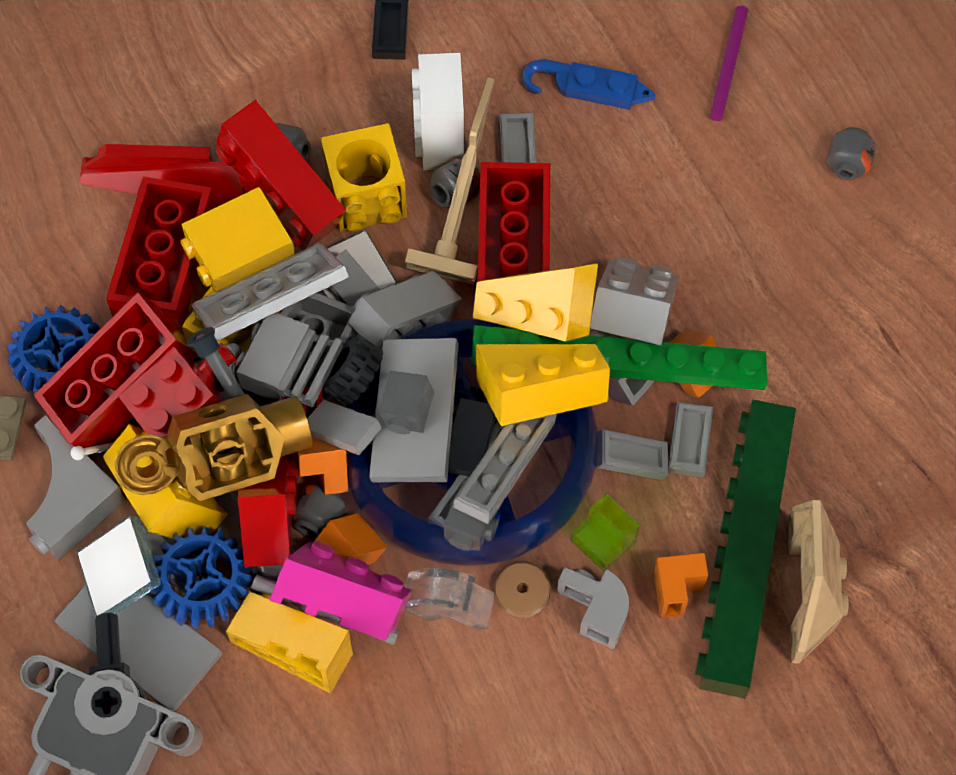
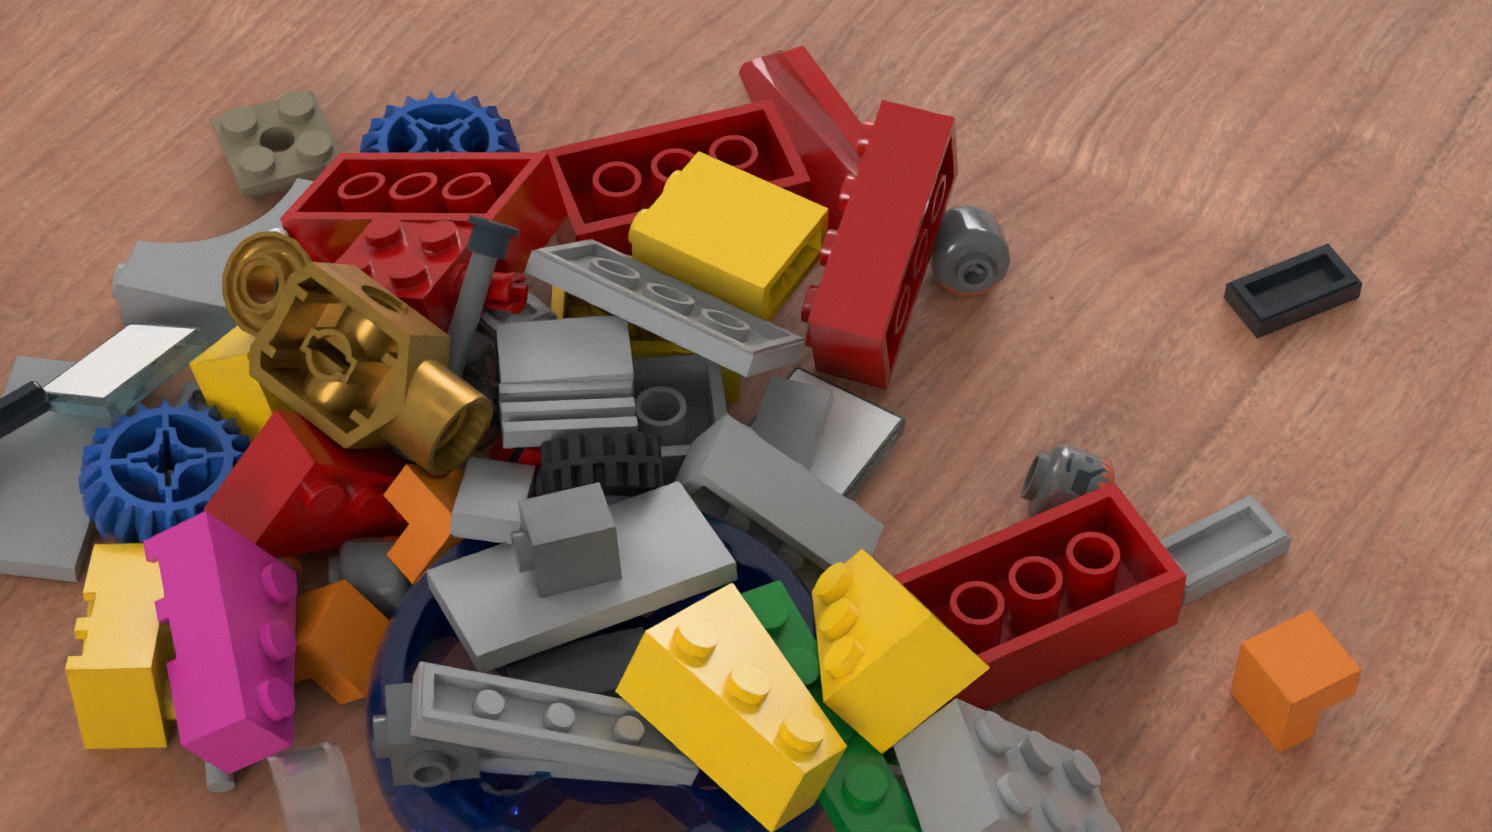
camera: 60 degrees right, 15 degrees down
(360, 154) = (978, 359): yellow brick -> none
(438, 109) = (1162, 384): white brick -> none
(443, 259) = (1155, 446): tan piece -> none
(591, 83) = (1418, 597): blue plate -> none
(615, 155) = (1291, 677): none -> orange piece

